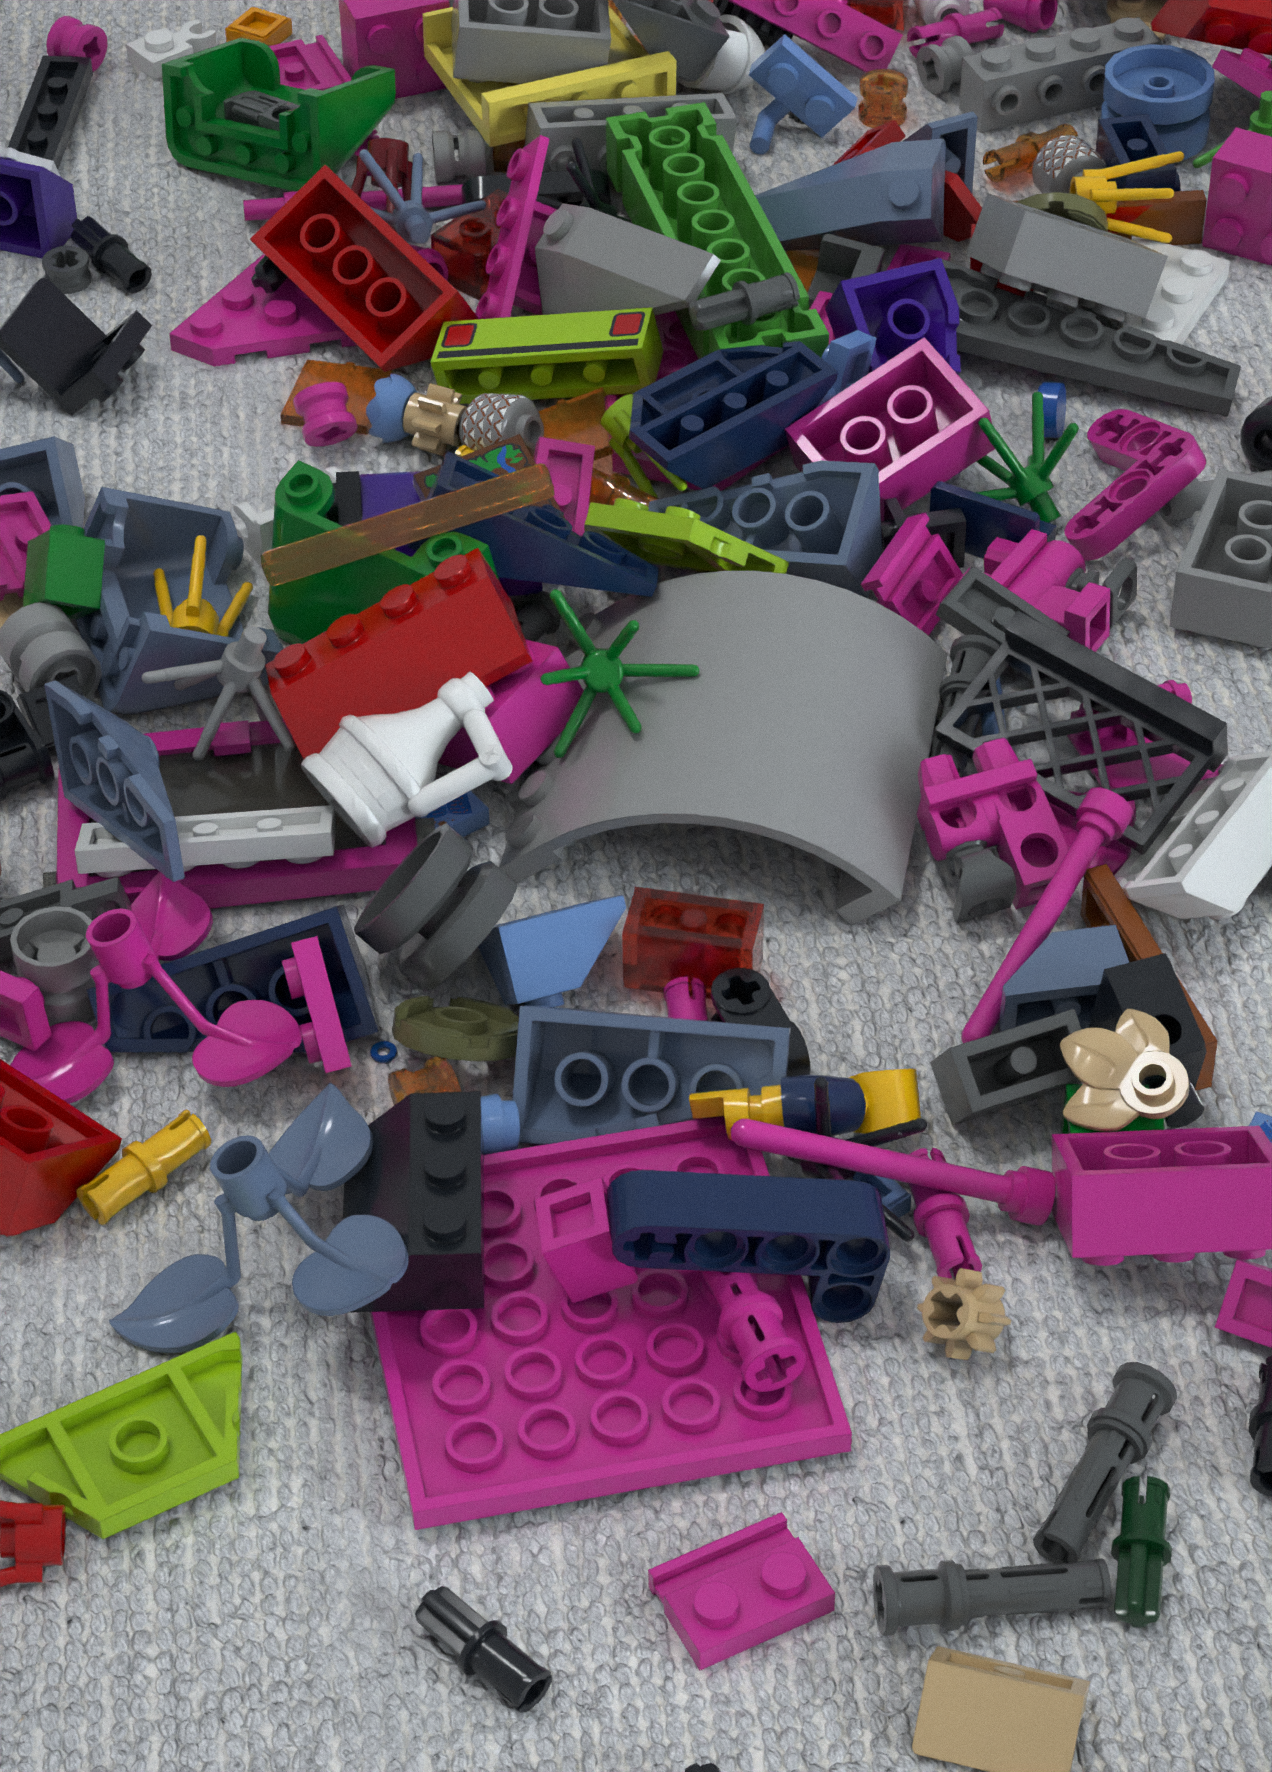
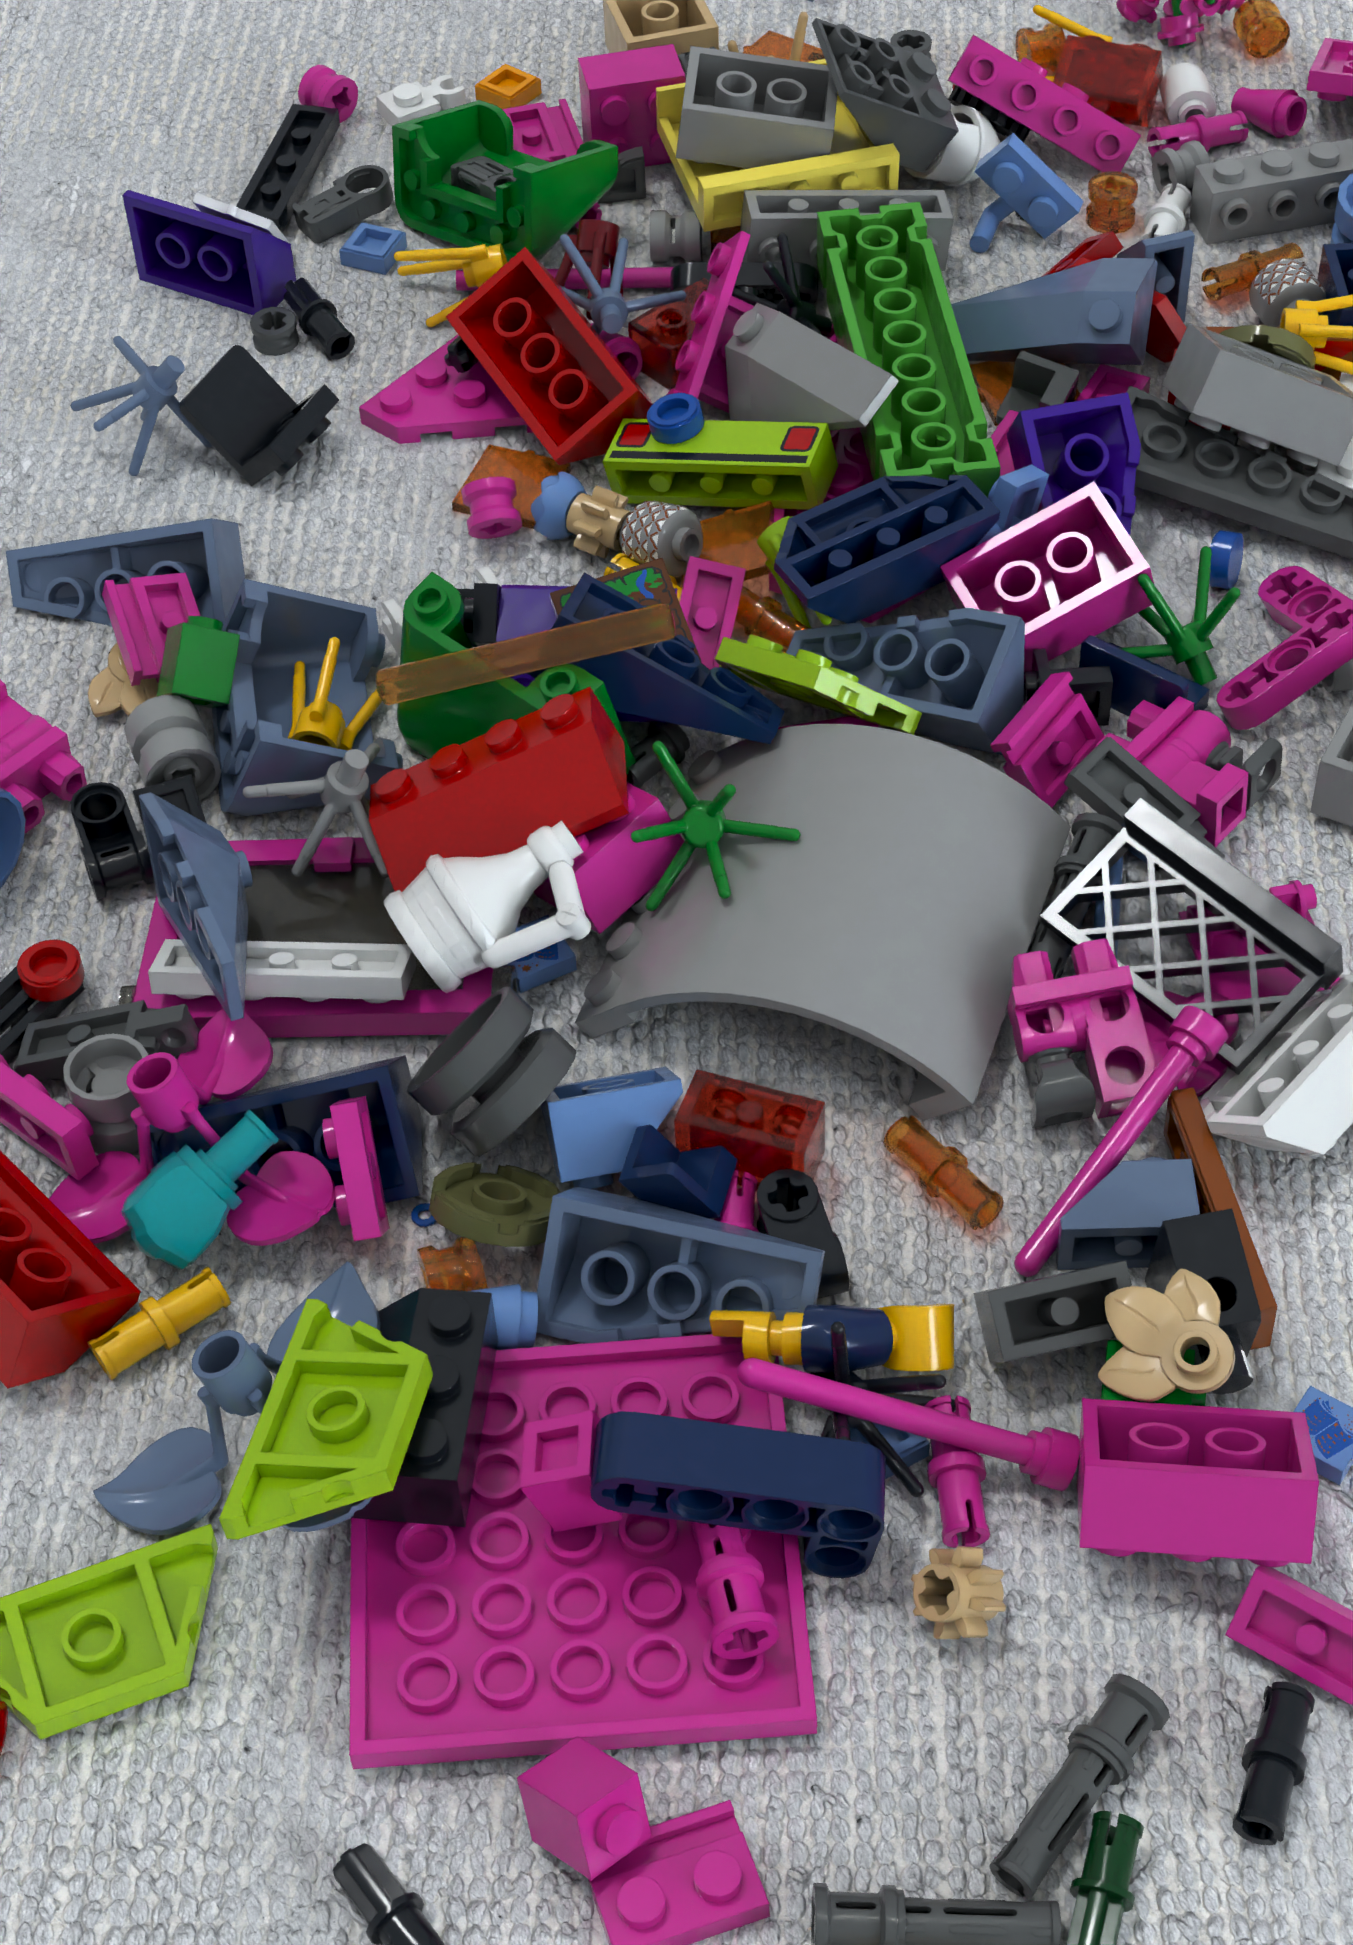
camera: 10 degrees right, 5 degrees up
(113, 147) = (343, 205): none -> dark grey piece
(151, 187) = (372, 248): none -> medium blue tile
(159, 1044) = (190, 1194): none -> teal piece
(268, 189) = (477, 264): none -> yellow plant
(353, 1209) = (328, 1425): none -> lime wing
(405, 107) = (630, 177): none -> dark grey tile
(498, 315) = (675, 418): none -> blue tile
(640, 988) = (677, 1179): none -> dark blue panel
(649, 1527) = (584, 1807): none -> dark pink brick
(745, 302) = (918, 428): dark grey axle -> none
(880, 964) = (943, 1172): none -> clear orange pin
(939, 102) = (1168, 213): none -> white pin

